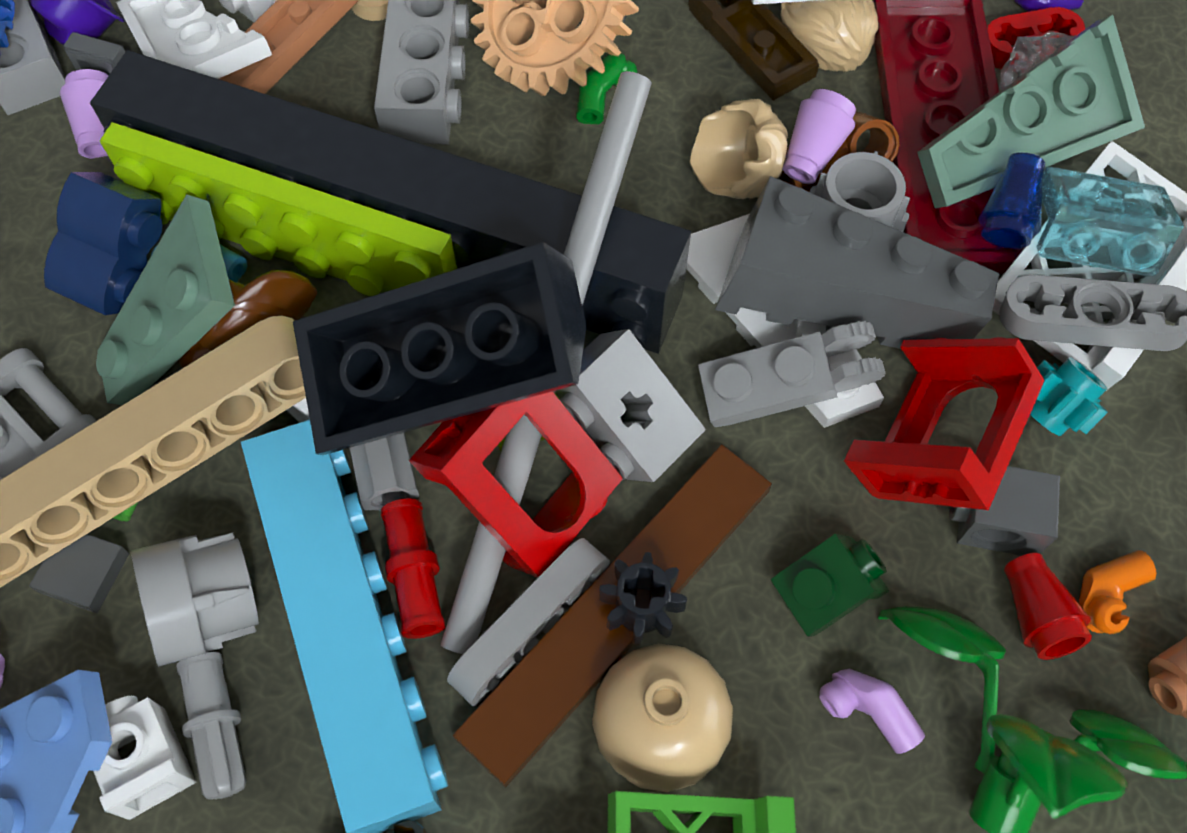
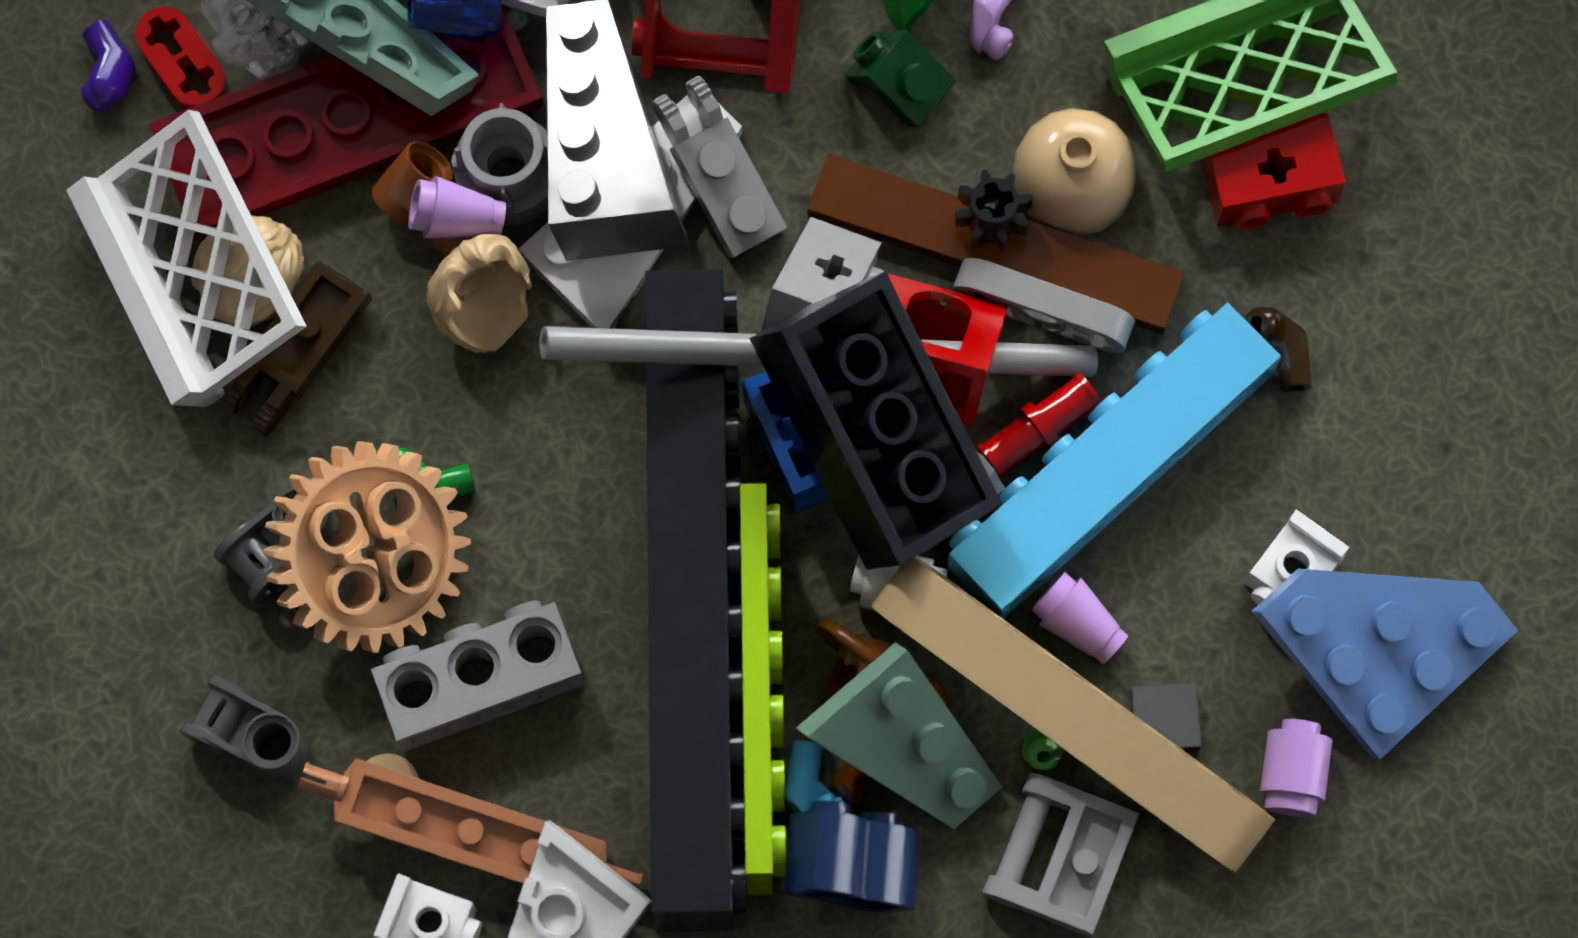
camera: 110 degrees left, 10 degrees up
(194, 595) = (1153, 583): light grey piece -> none
(212, 726) = (1242, 526): light grey axle -> none
(217, 514) = (1079, 618): none -> lavender cone

